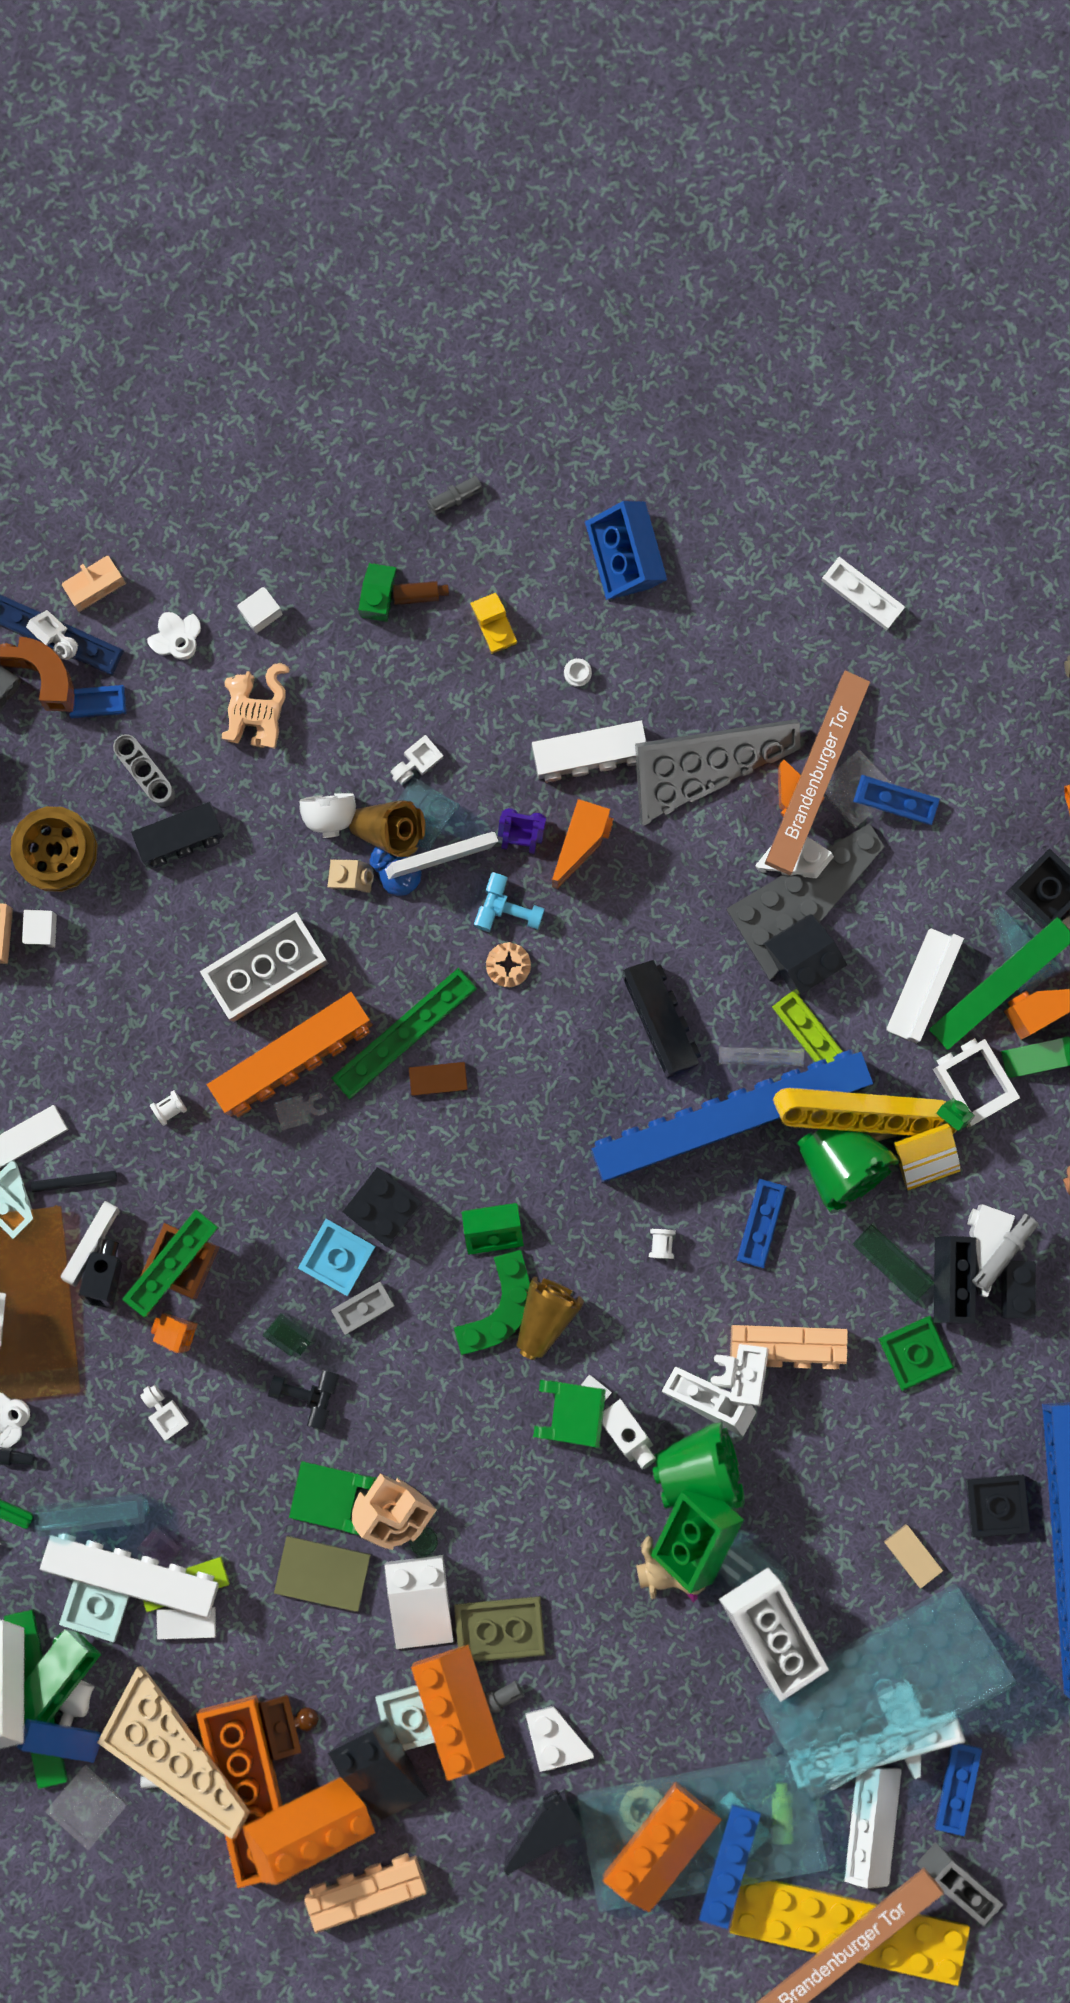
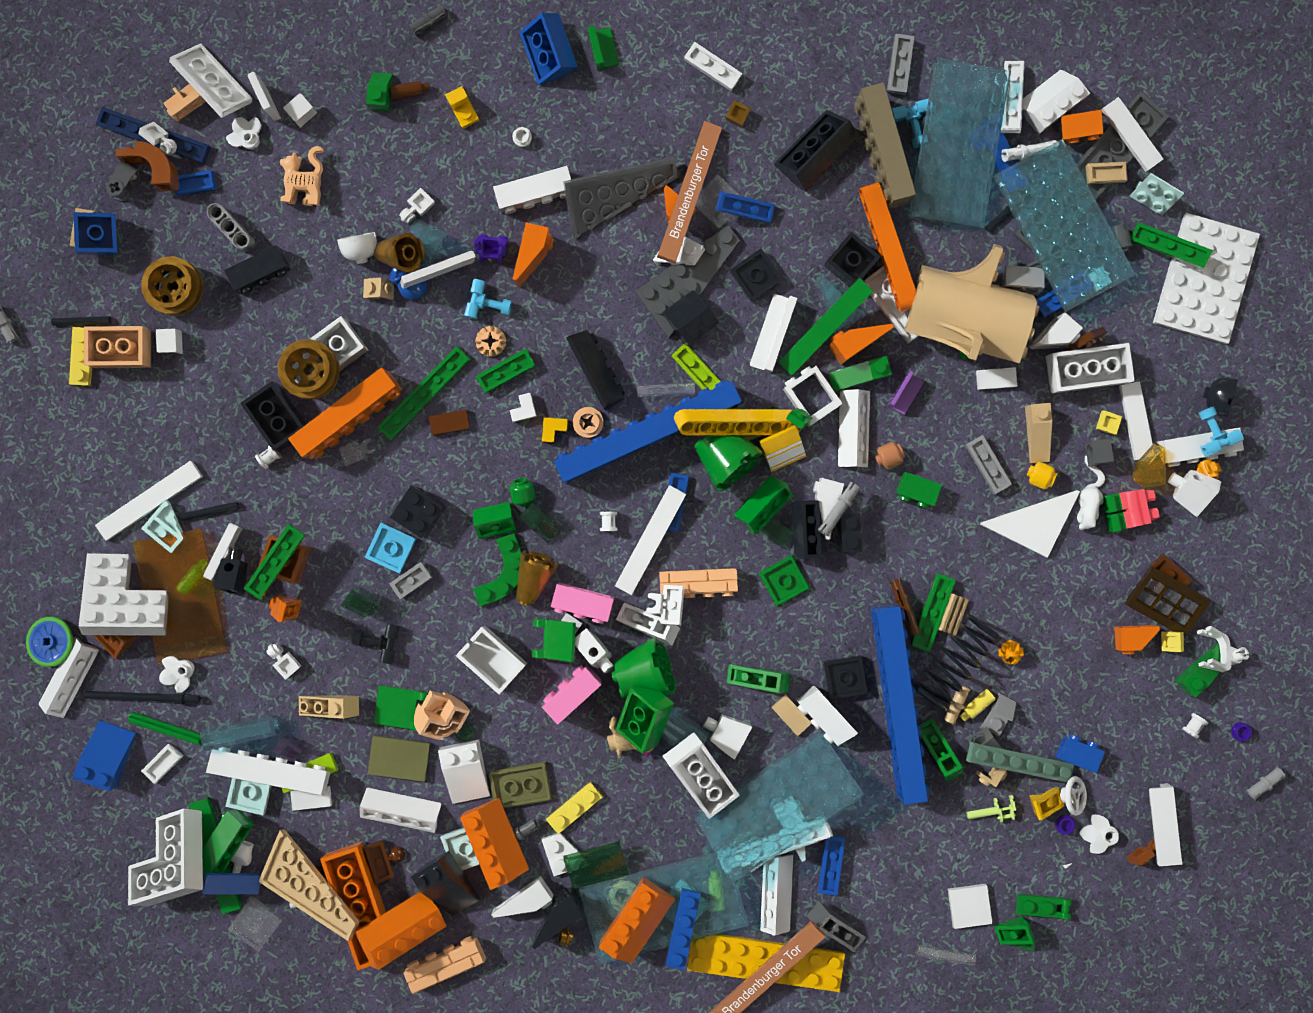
camera: 10 degrees left, 5 degrees up
(41, 1277) = (191, 577): none -> clear neon green cylinder
(135, 557) = (211, 80): none -> white tile
(184, 1049) = (273, 415): none -> black brick
(211, 587) = (263, 96): none -> white tile
(225, 1486) = (329, 706): none -> tan slope
(229, 962) = (288, 374): none -> pearl gold wheel
(317, 1652) = (400, 810): none -> white panel
(474, 1435) = (491, 659): none -> white piece
(498, 1803) = (528, 899): none -> white slope
(527, 1010) = (505, 371): none -> green plate
(538, 1190) = (522, 492): none -> green head
(549, 1866) = (565, 937): none -> pearl gold plate
(553, 1071) = (526, 410): none -> white piece
(561, 1238) = (540, 523): none -> clear green slope
(578, 1670) = (574, 807): none -> light yellow plate
(589, 1095) = (550, 426): none -> yellow piece
(589, 1495) = (571, 693): none -> bright pink brick
(605, 1759) = (596, 865): none -> clear green tile
(616, 1362) = (582, 603): none -> bright pink brick
(641, 1081) = (585, 413): none -> light nougat gear
(704, 554) = (603, 47): none -> green panel
(722, 1276) = (650, 539): none -> white tile
(816, 1576) = (728, 733): none -> white torso
(868, 1496) = (758, 678): none -> green slope
(894, 663) = (738, 113): none -> pearl gold plate
(894, 1237) = (764, 504): none -> green panel
(905, 899) = (756, 275): none -> black plate
(965, 1561) = (825, 716): none -> white slope
(1006, 724) = (817, 149): none -> black slope
(1034, 1135) = (854, 428): none -> white panel

